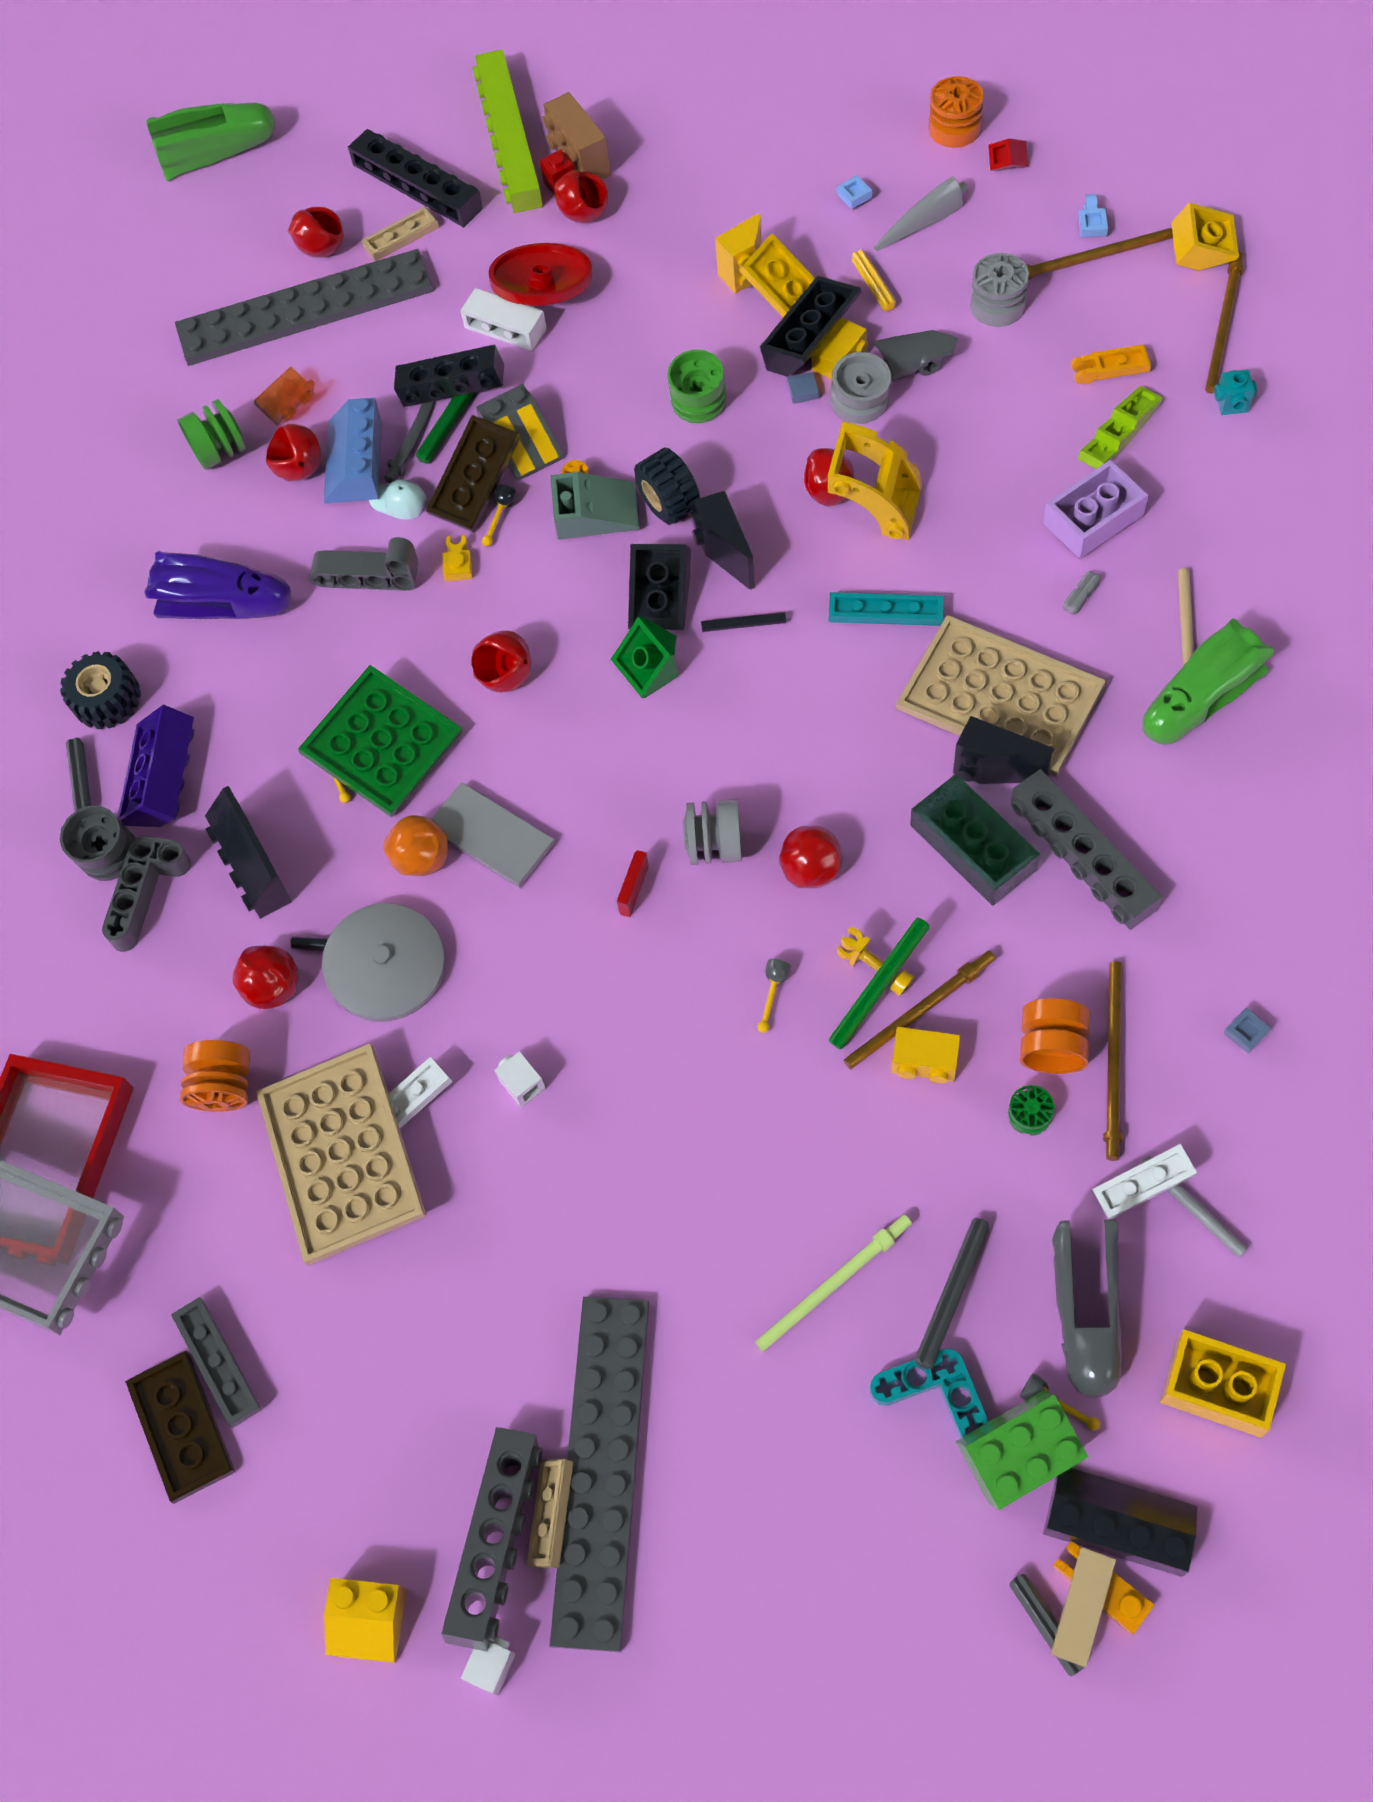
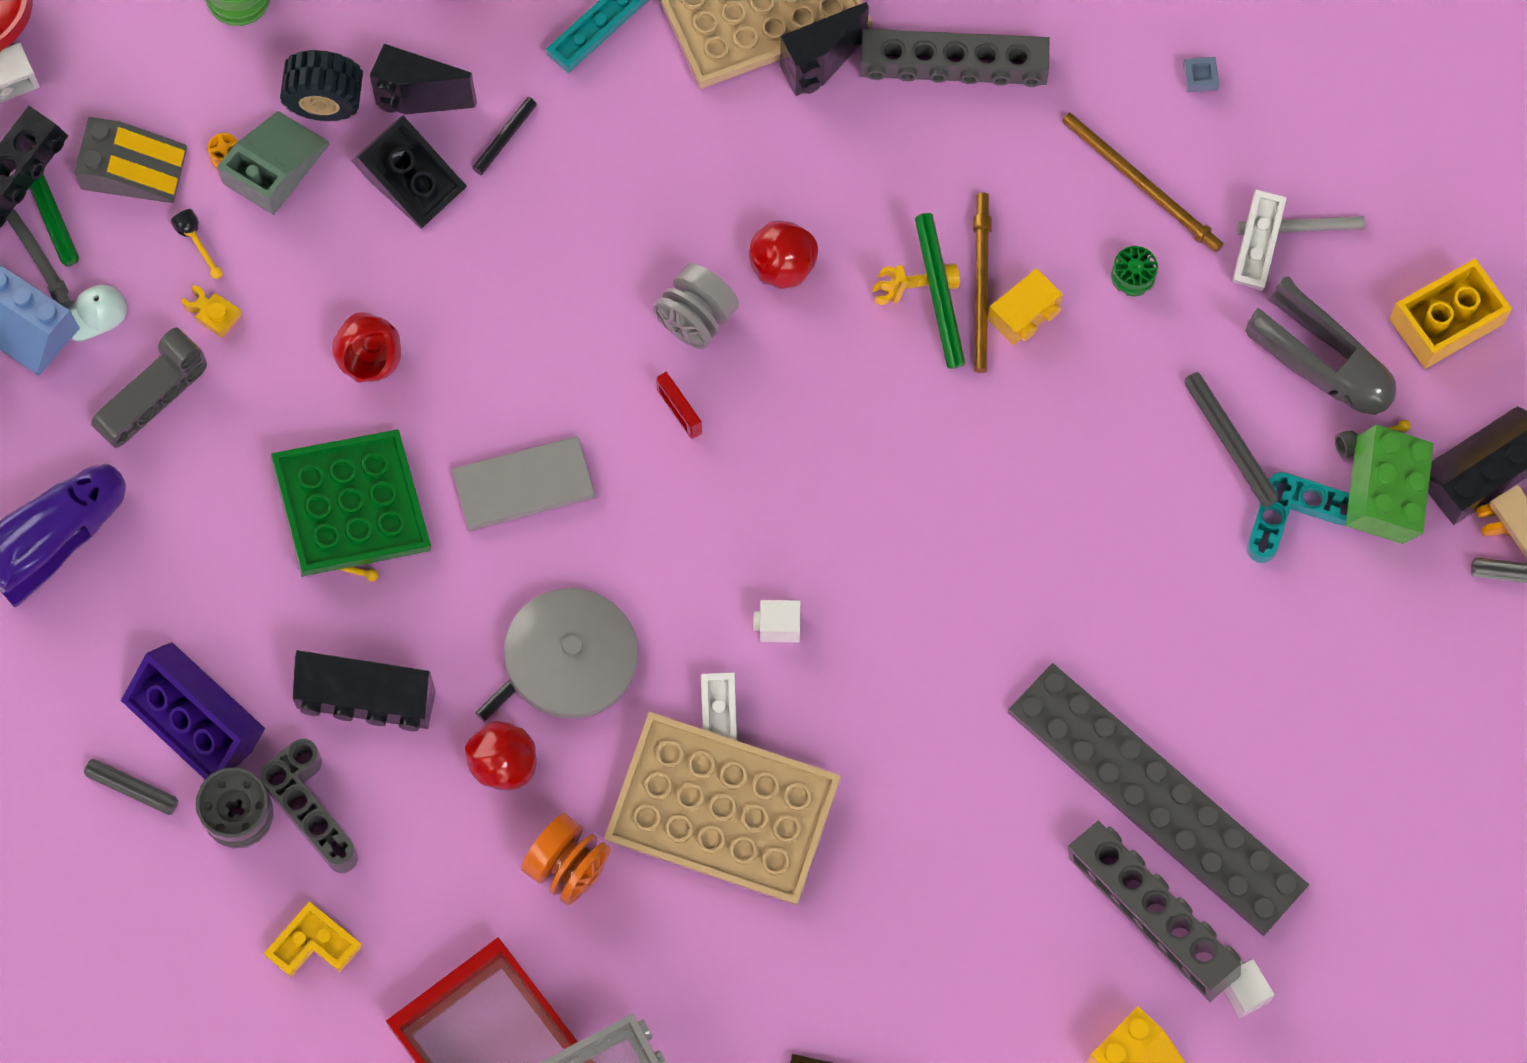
camera: 60 degrees left, 5 degrees up
(49, 962) = (311, 933): none -> yellow plate
(100, 690) = (60, 704): black wheel -> none
(216, 1362) = (823, 1035): dark grey plate -> none
(416, 846) = (487, 546): orange piece -> none
(473, 473) = (140, 229): dark brown tile -> none
(550, 1513) = (1165, 858): tan tile -> none
(647, 657) = (472, 233): green slope -> none
(776, 972) = (857, 360): hinge -> none
(881, 1242) = (1147, 459): yellowish green bar -> none
(974, 839) = (878, 125): clear green brick -> none
(1055, 1036) = (1096, 203): orange wheel -> none

